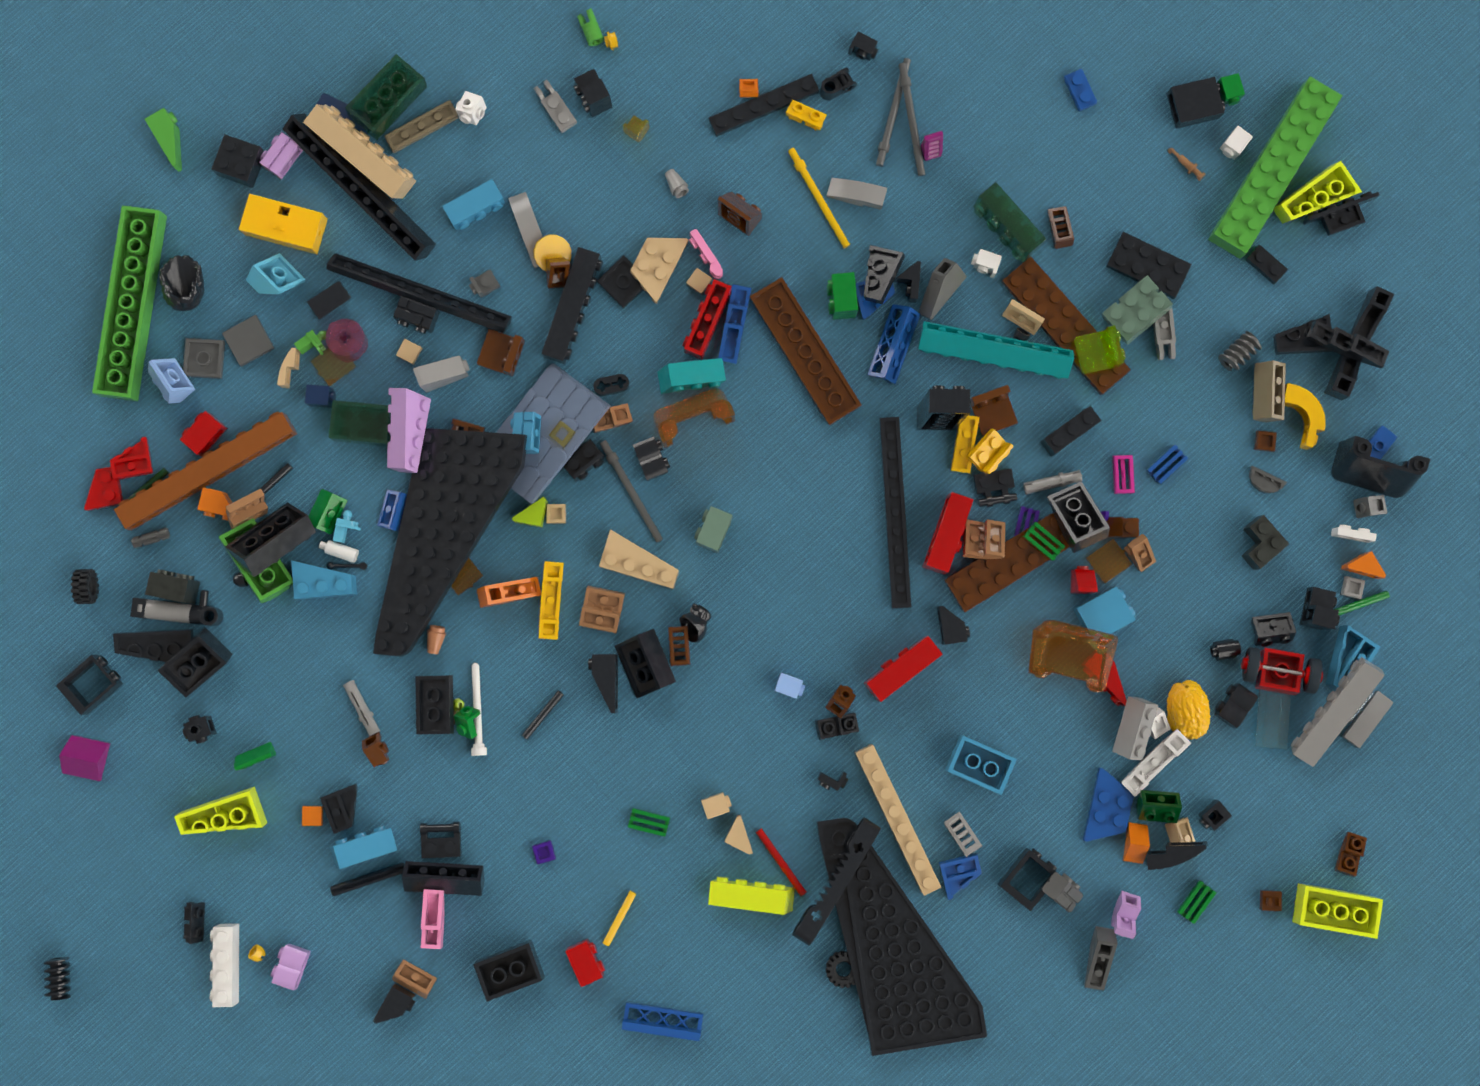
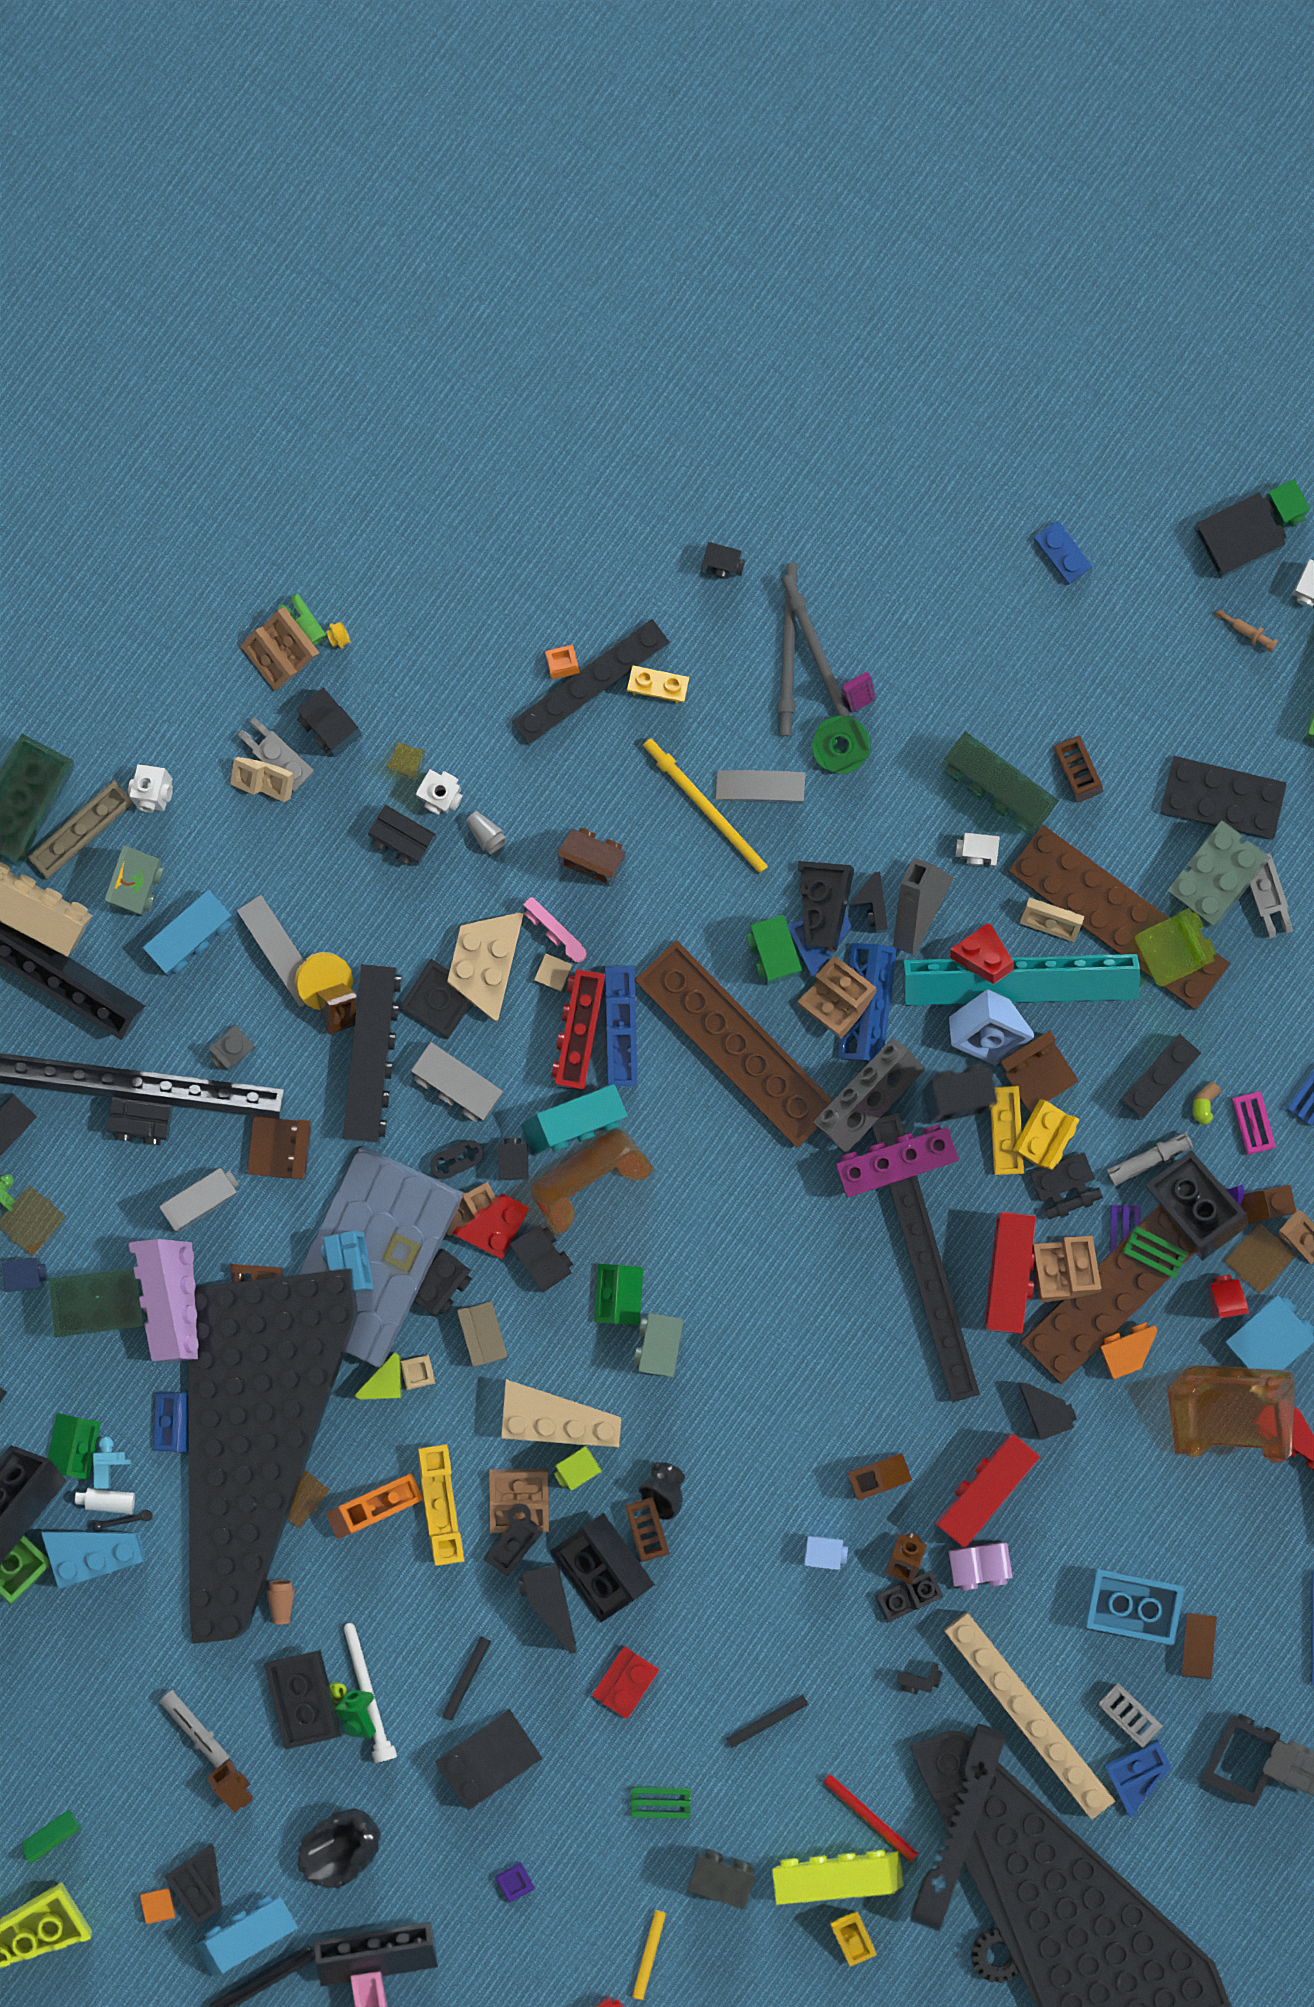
camera: 10 degrees left, 0 degrees up
(339, 332) = (30, 1174): clear pink brick -> none
(409, 351) = (141, 1177): tan tile -> none
(435, 805) = (339, 1848): none -> black hair
(441, 846) = (360, 1908): black plate -> none
(446, 163) = (134, 881): none -> sand green slope
(543, 118) = (264, 777): none -> tan slope
(544, 770) = (488, 1759): none -> black slope
(572, 40) = (279, 649): none -> medium nougat slope
(592, 634) = (514, 1541): none -> black hinge
(602, 498) = (482, 1334): none -> dark tan panel
(612, 458) = (484, 1271): dark grey bar -> none
(622, 173) = (402, 836): none -> black brick
(622, 336) = (456, 1083): none -> light grey brick
(625, 431) = (494, 1225): none -> red wing
(643, 596) = (577, 1469): none -> lime brick
(643, 740) = (625, 1682): none -> red plate
(646, 393) = (513, 1160): none -> black brick
(652, 151) = (432, 784): none -> white brick
(676, 880) = (721, 1879): none -> pearl dark grey brick
(695, 492) = (618, 1294): none -> green panel
(716, 805) = (755, 1754): tan brick -> none
(728, 785) = (767, 1721): none -> black bar
(738, 837) = (798, 1794): tan slope -> none
(753, 938) = (853, 1939): none -> yellow slope
(835, 645) = (879, 1476): none -> reddish brown slope
(840, 82) = (699, 623): black piece -> none
(876, 335) = (837, 997): none -> medium nougat slope
(882, 401) = (869, 1095): none -> dark grey brick
(887, 715) = (980, 1564): none -> lavender brick
(891, 447) = (896, 1162): none -> magenta brick
(905, 171) = (857, 750): none -> green plate
(969, 371) = (989, 1028): none -> light blue slope
(975, 328) = (983, 954): none -> red wing
(1011, 602) = (1129, 1352): none -> orange slope
(1016, 799) = (1199, 1646): none -> reddish brown slope
(1021, 334) = (1054, 946): black hinge -> none
(1093, 455) = (1201, 1103): none -> arm

